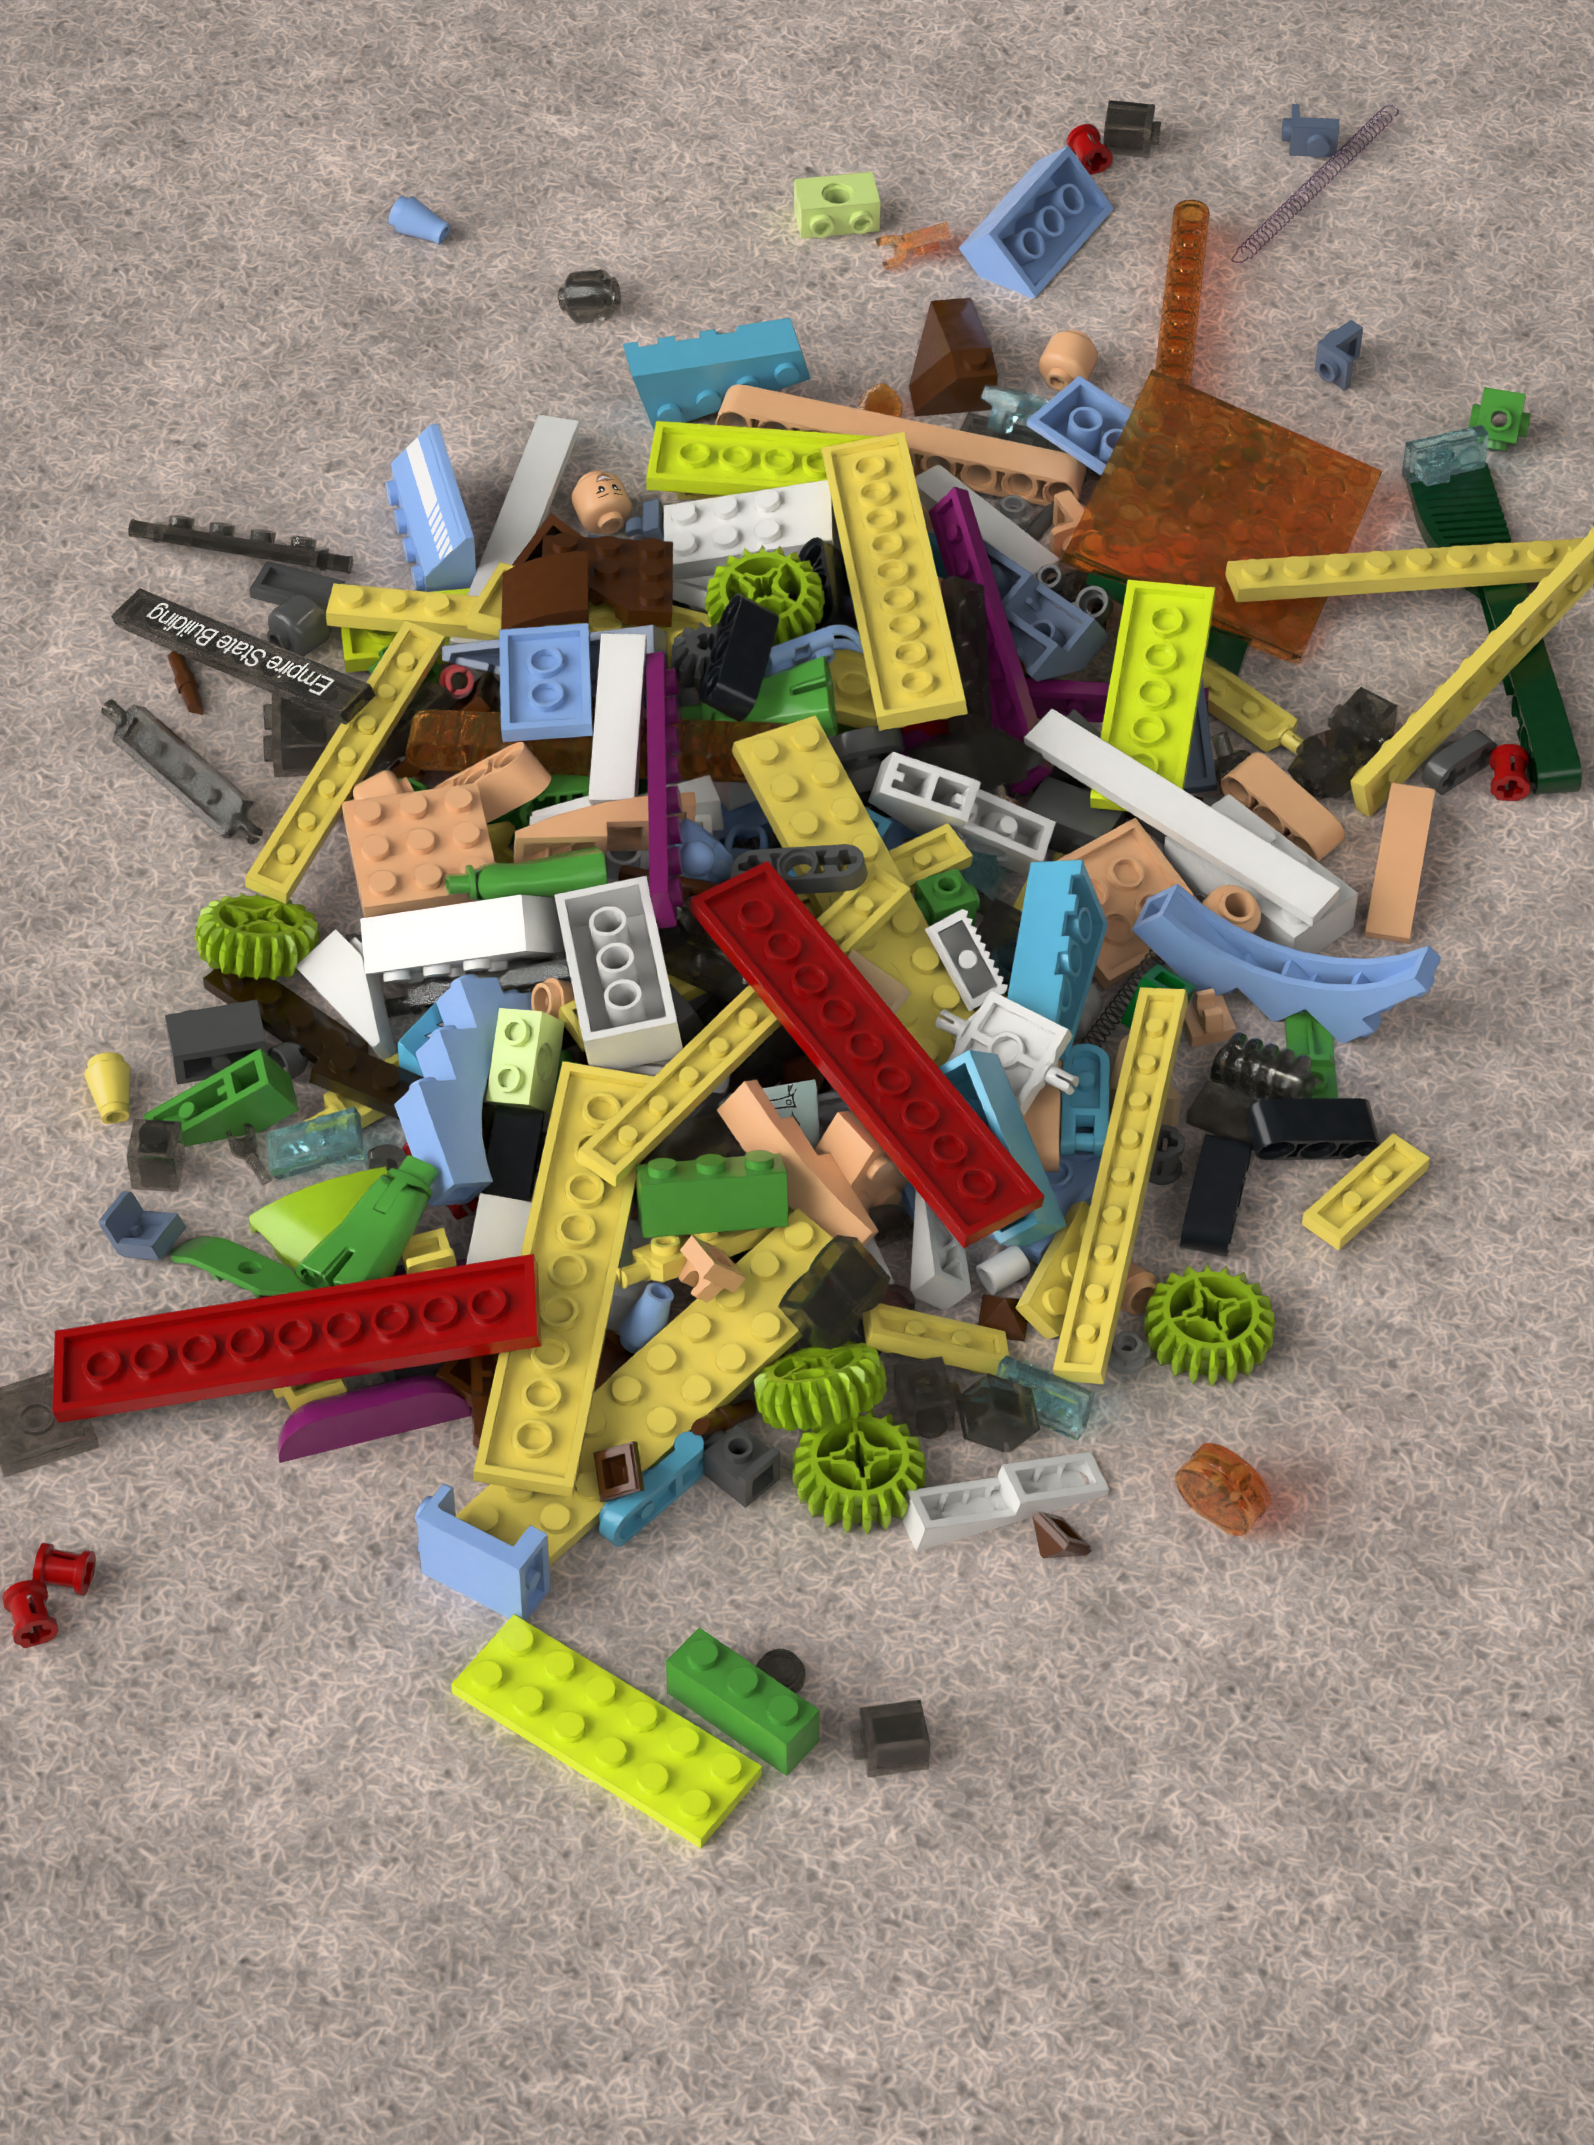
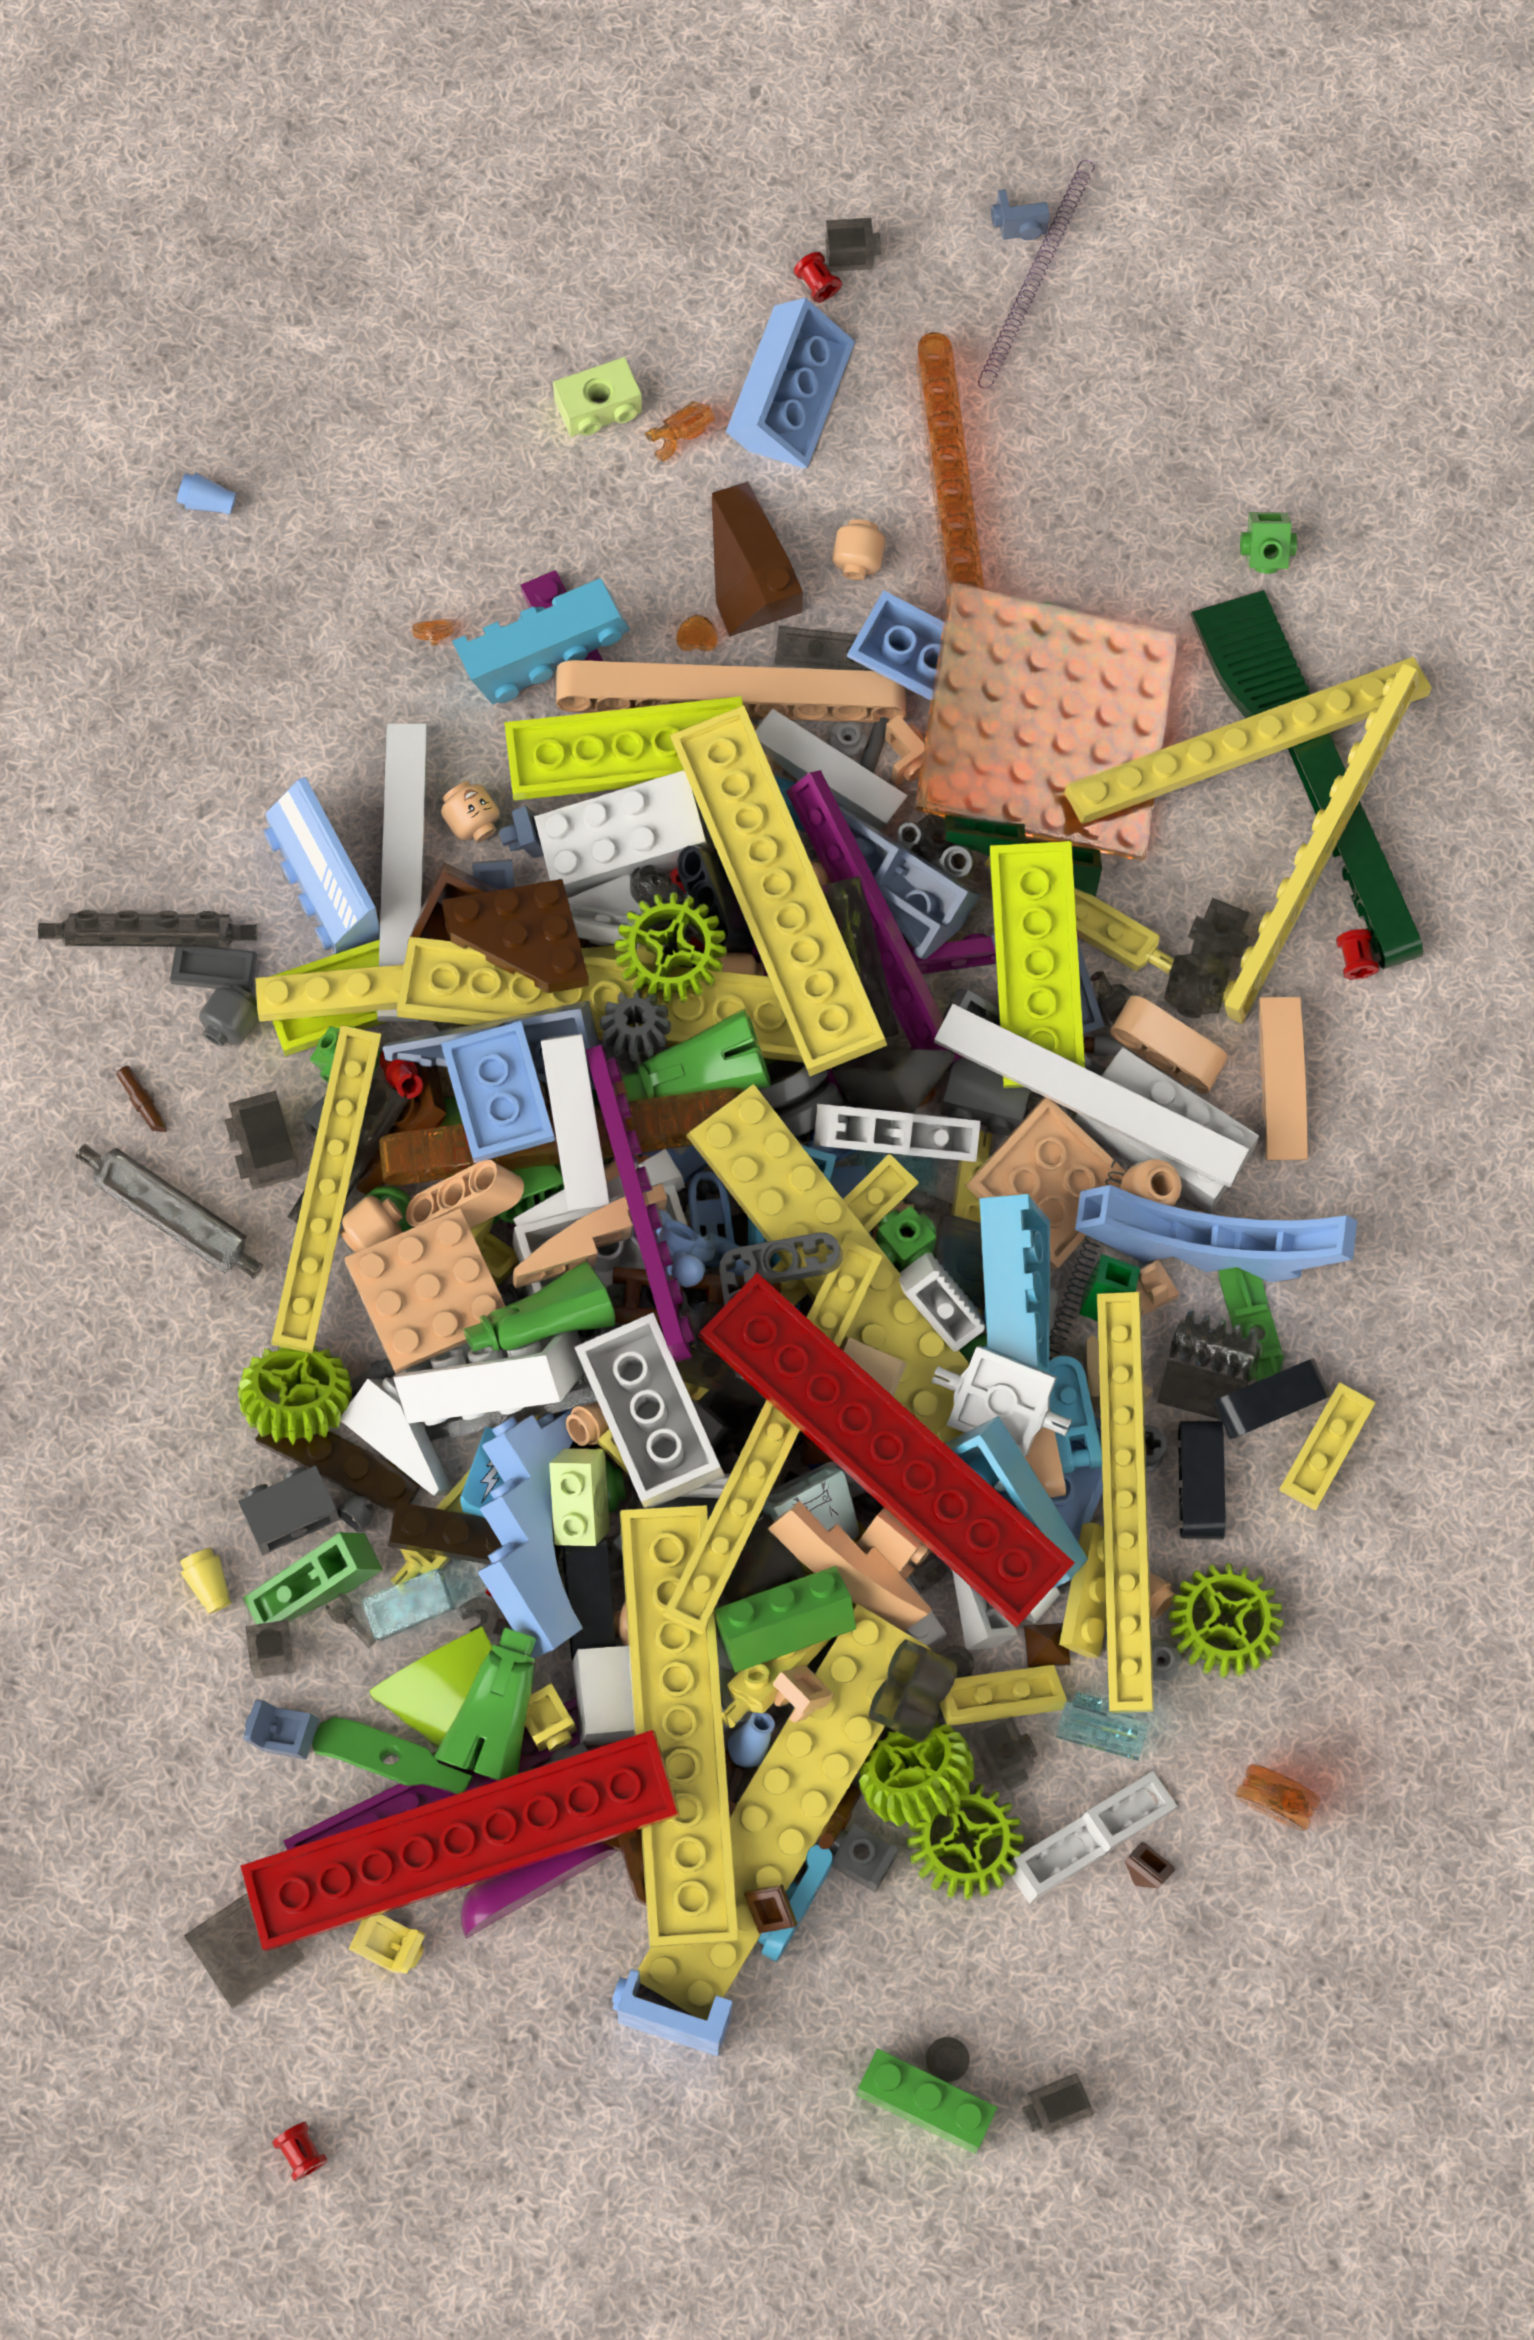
camera: 15 degrees left, 20 degrees up
(64, 1568) = (315, 2098): red bush -> none
(190, 1440) = (388, 1944): none -> light yellow bracket
(244, 656) = (194, 1080): clear smoke tile -> none
(547, 591) = (466, 978): reddish brown slope -> none
(590, 295) = (393, 558): clear smoke head -> none
(607, 1730) = (816, 2147): neon yellow plate -> none
(610, 359) = (433, 630): none -> clear orange piece
(739, 657) = (670, 1036): black beam -> none
(818, 644) = (729, 992): light blue piece -> none
(997, 1413) = (1071, 1761): clear smoke brick -> none
(1010, 405) = (825, 617): clear light blue hinge -> none
(1337, 354) = (1100, 483): sand blue bracket -> none
(1444, 455) = (1219, 606): clear light blue hinge -> none
(1458, 761) = (1311, 951): dark grey beam -> none

